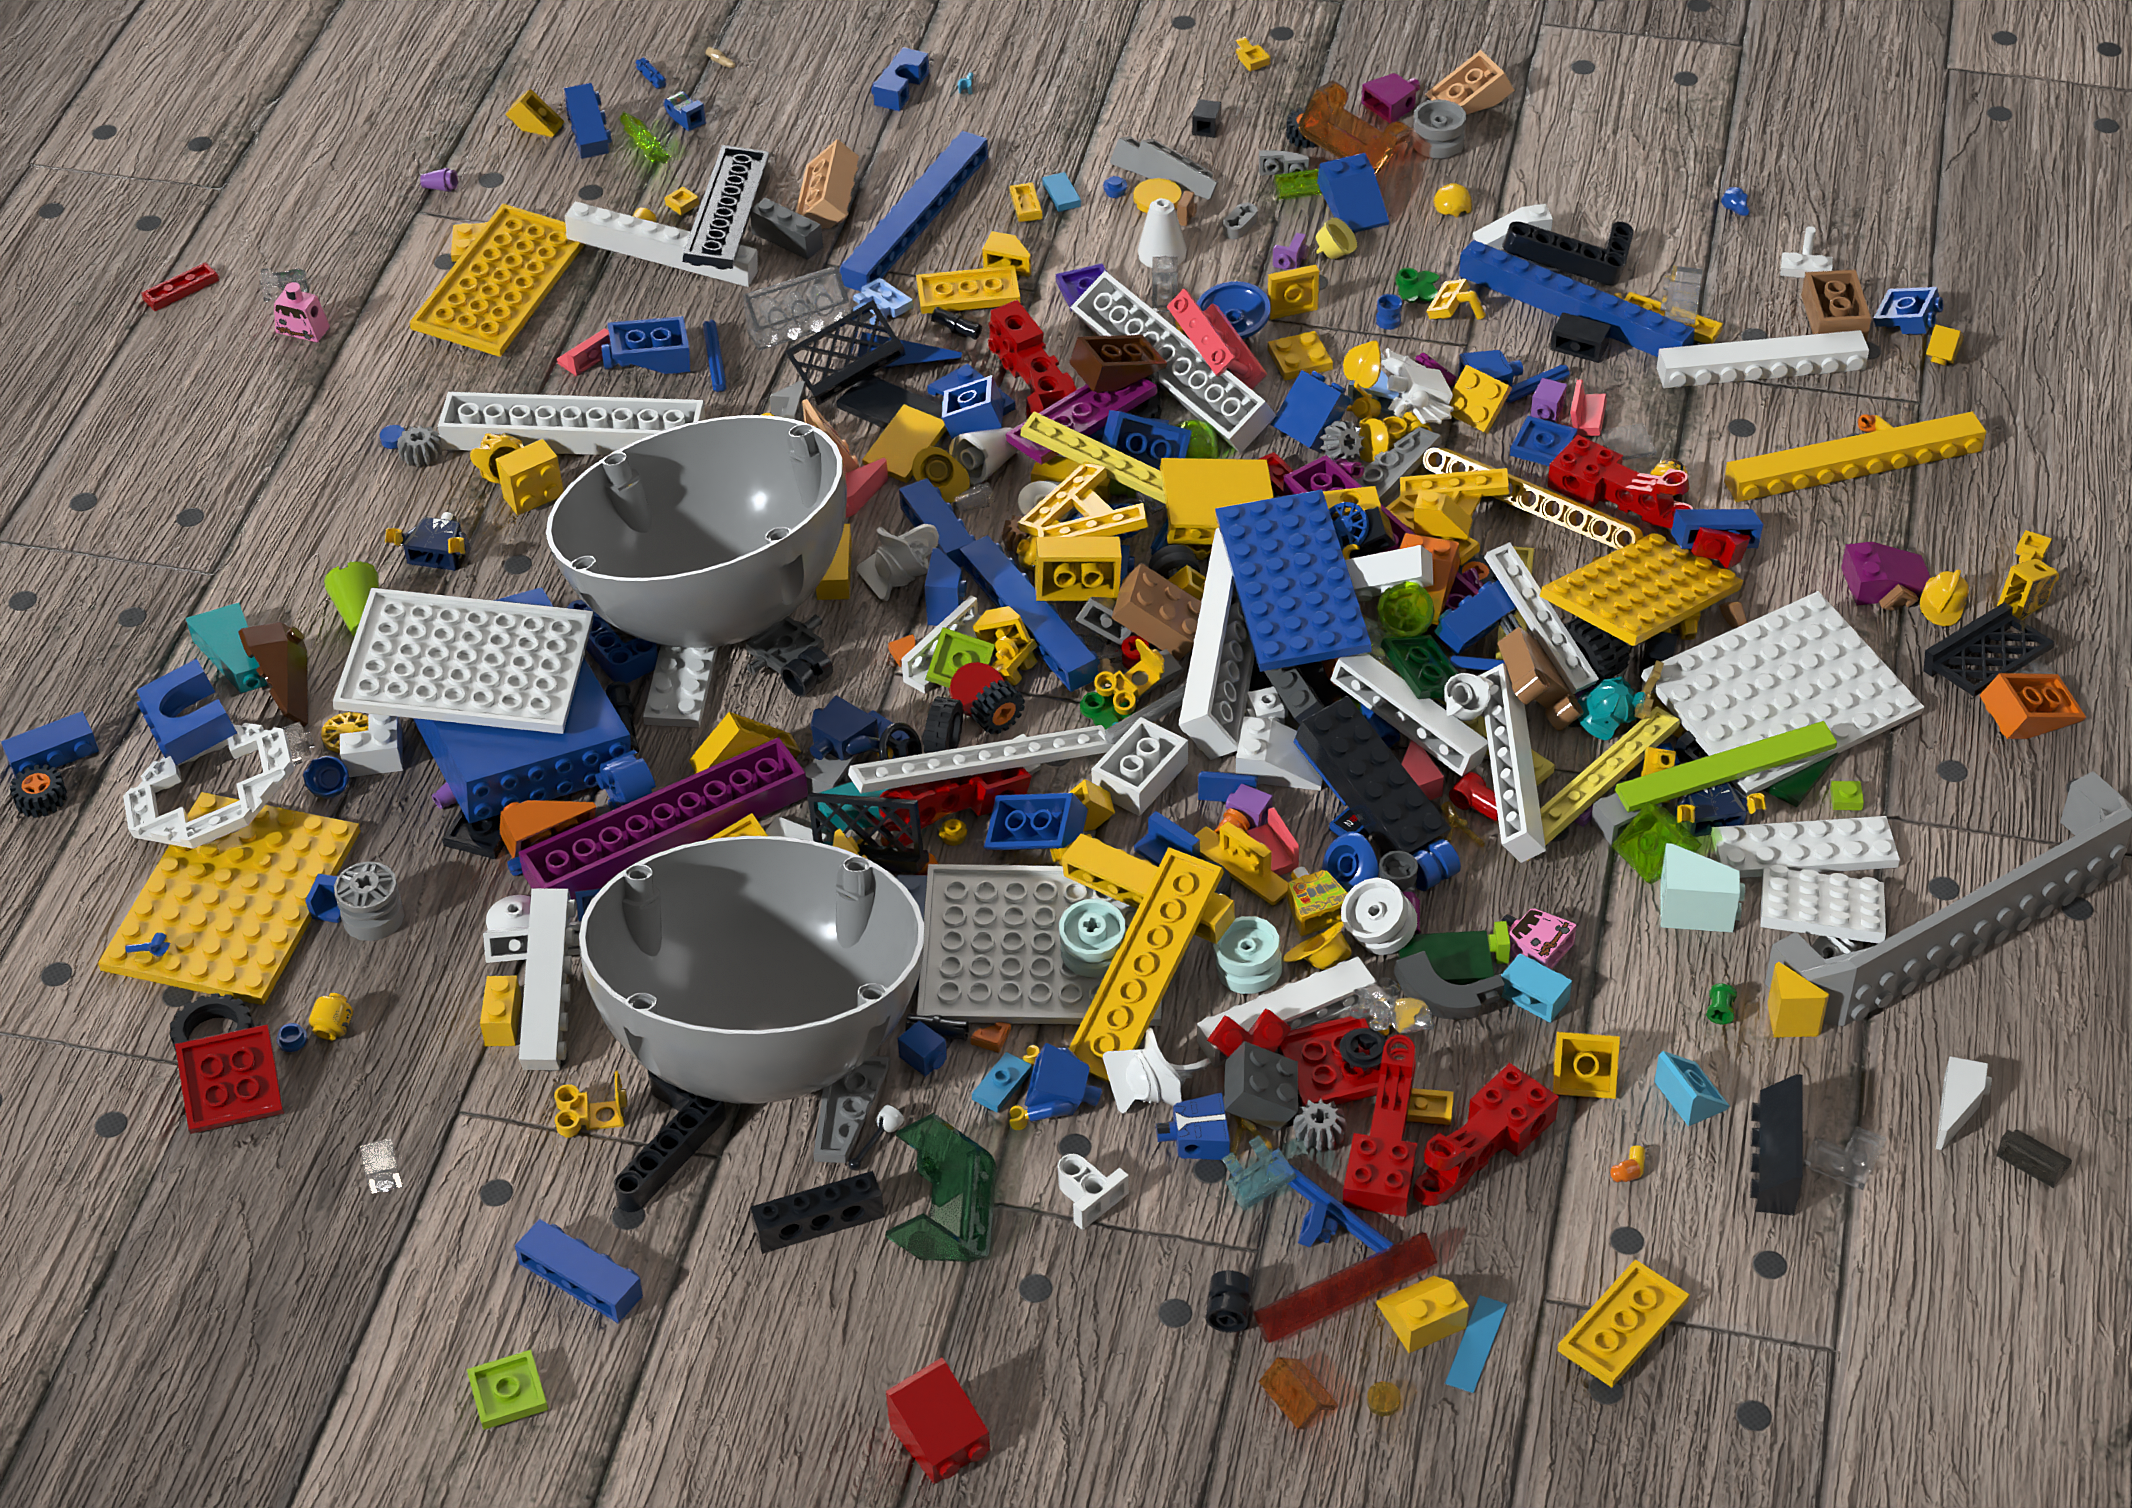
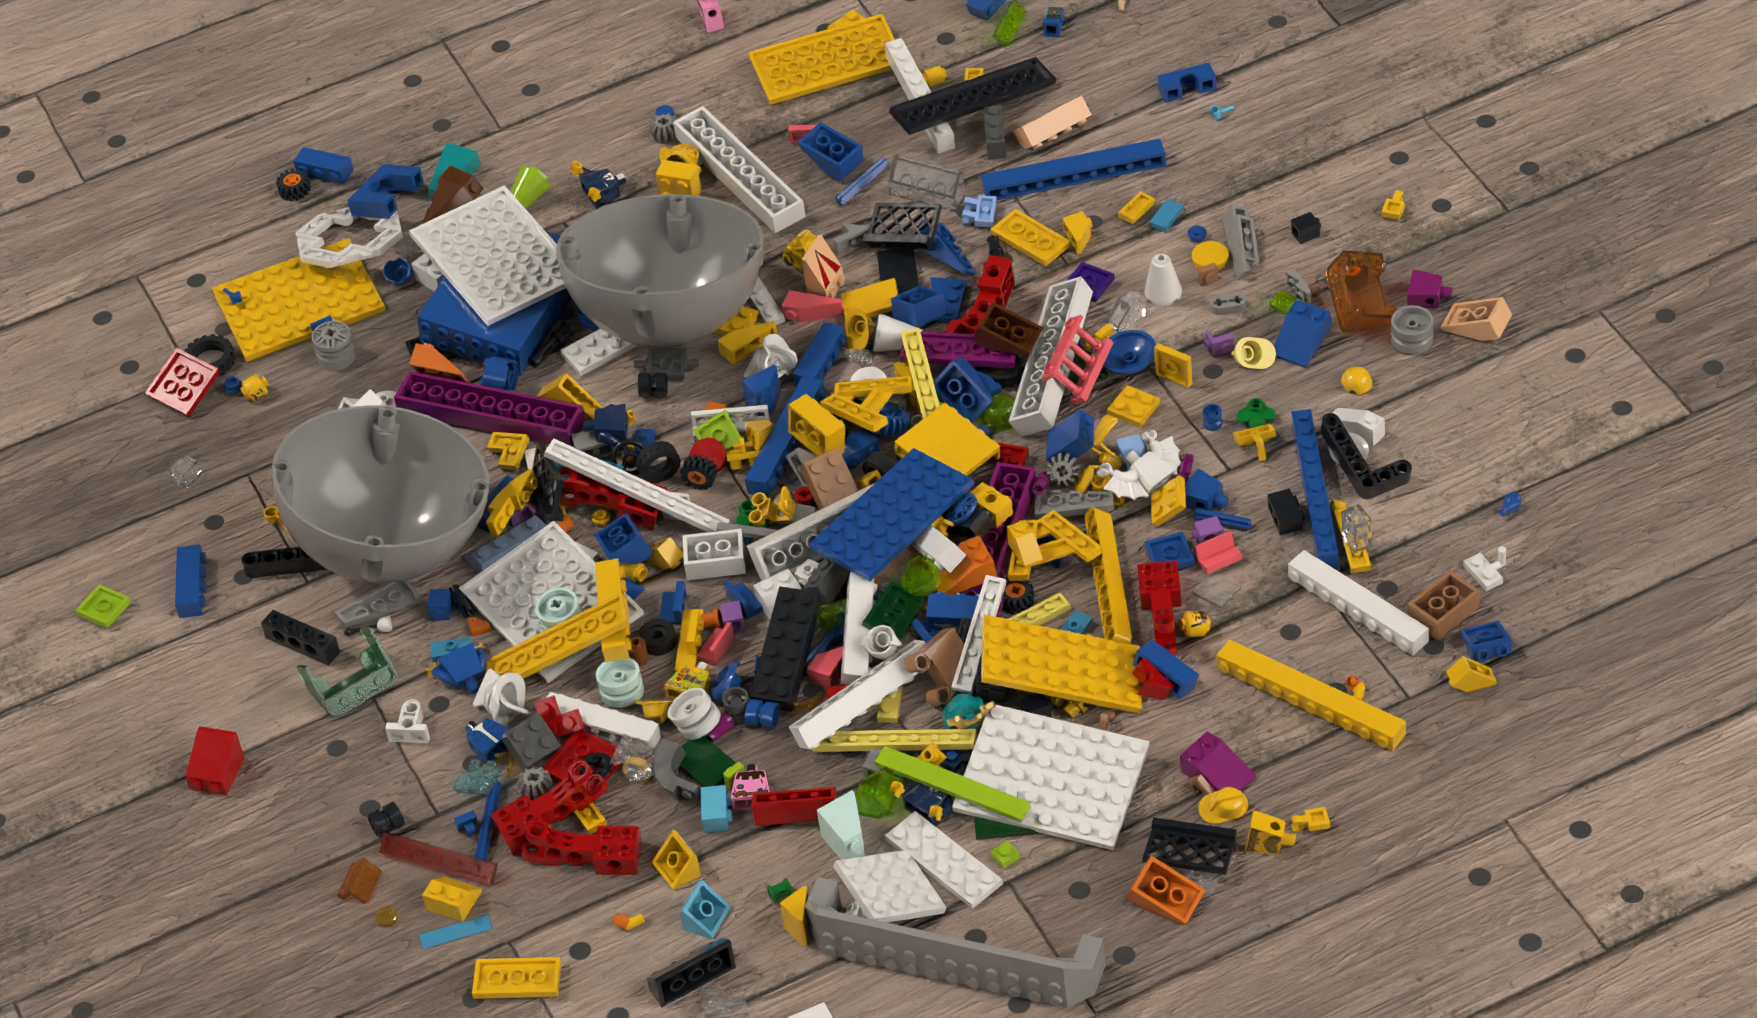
camera: 55 degrees right, 0 degrees up
(1565, 559) = (1078, 623): none -> dark azure plate
(1611, 915) = (790, 805): none -> red brick

